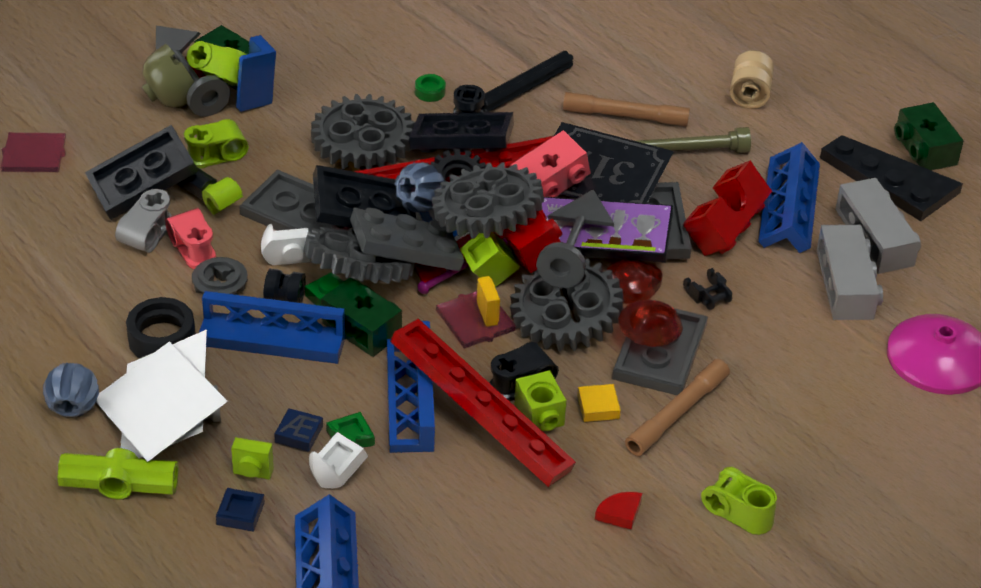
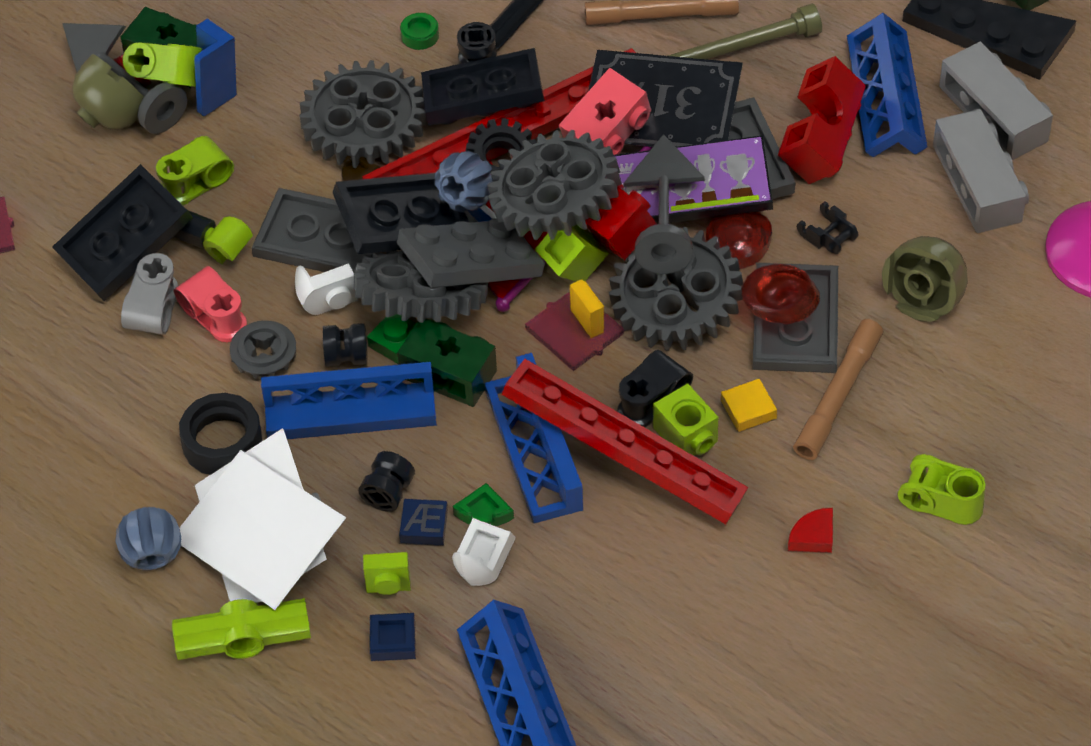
camera: 10 degrees left, 10 degrees up
(275, 394) = (388, 477): none -> black wheel
(776, 337) = (925, 277): none -> olive cylinder

